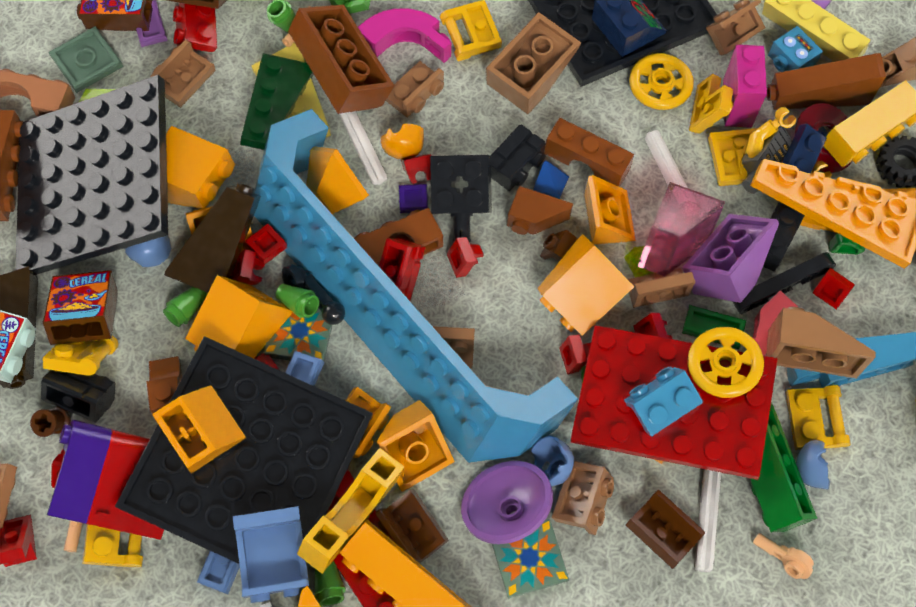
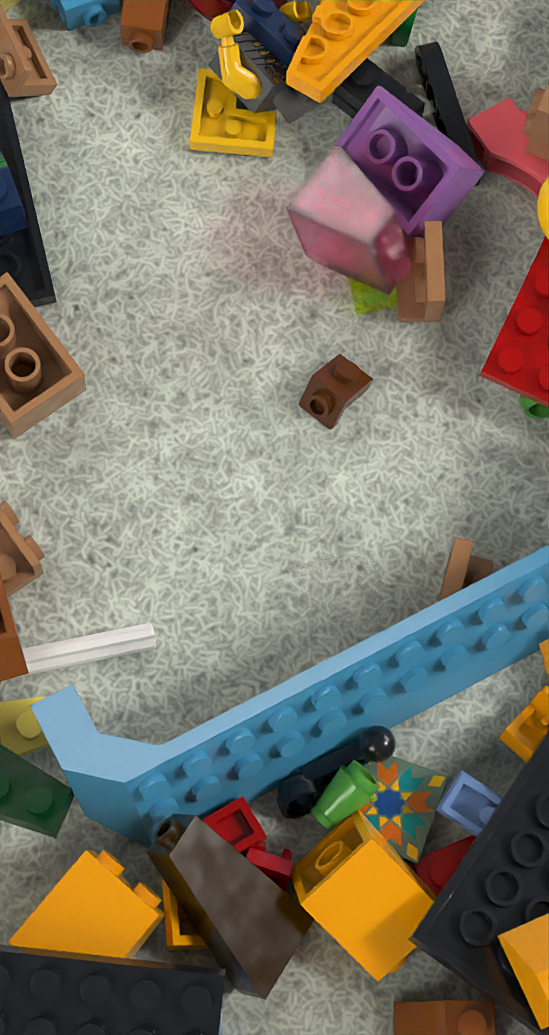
camera: 80 degrees left, 5 degrees up
(183, 307) = (312, 982): bright green cone -> none
(333, 180) = (158, 700): light orange slope -> none
(402, 263) = (322, 621): red brick -> none
(405, 143) = (110, 584): light orange hair -> none
(413, 197) = (194, 591): dark purple tile -> none
(416, 164) = (140, 571): red tile -> none
(416, 227) = (261, 590): dark orange arch -> none
(463, 256) = (318, 535): red tile -> none
(473, 199) = (232, 512): black brick -> none
(516, 157) = (165, 423): black brick -> none
(536, 212) = (264, 416): dark orange slope -> none
(551, 180) = (212, 384): blue slope -> none
(574, 353) = (503, 414): red tile -> none
(583, 286) = (410, 372): light orange slope -> none
(605, 159) = (168, 329): dark orange arch -> none
(608, 212) = (287, 317): light orange slope -> none
(652, 325) = (488, 304): red tile -> none
(664, 158) = (227, 215): white axle -> none
(666, 100) = (88, 217): yellow plate -> none
(701, 320) = (490, 224): green tile -> none
(710, 103) = (148, 135): yellow plate -> none
(748, 80) = (137, 69): dark pink brick -> none
(833, 288) = (468, 55): red tile -> none

